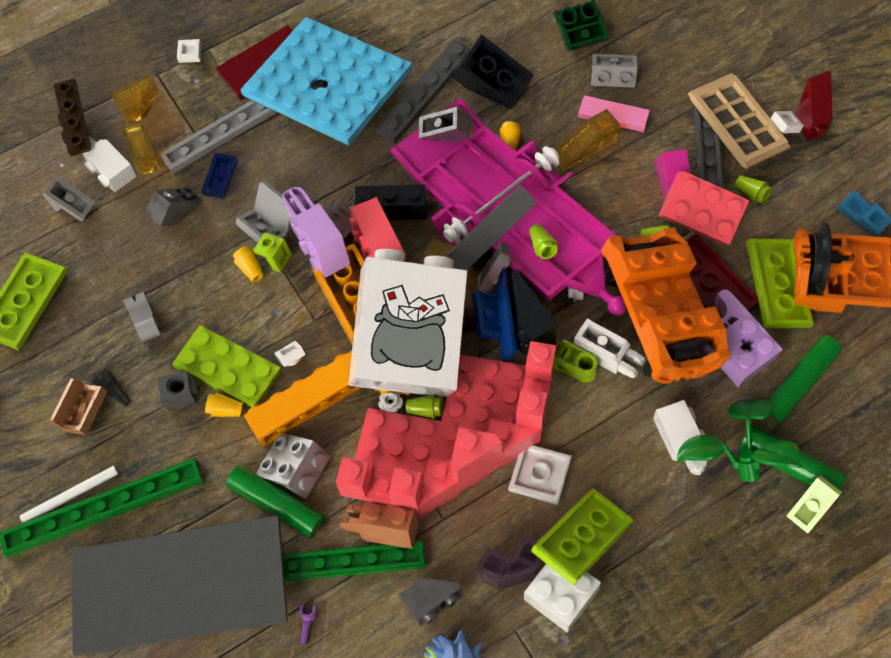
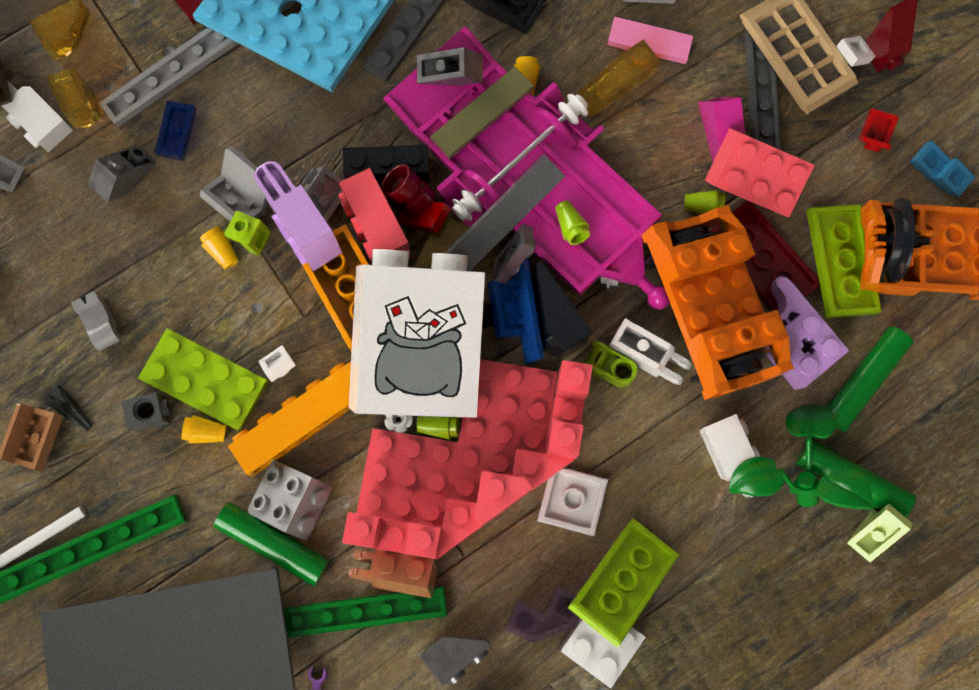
camera: 10 degrees left, 15 degrees up
(403, 216) = (407, 190): none -> dark red wheel
(420, 239) = (429, 221): none -> red tile
(471, 161) = (482, 112): none -> olive tile
(754, 189) = (815, 140): lime cone -> none
(807, 181) = (878, 130): none -> red bracket

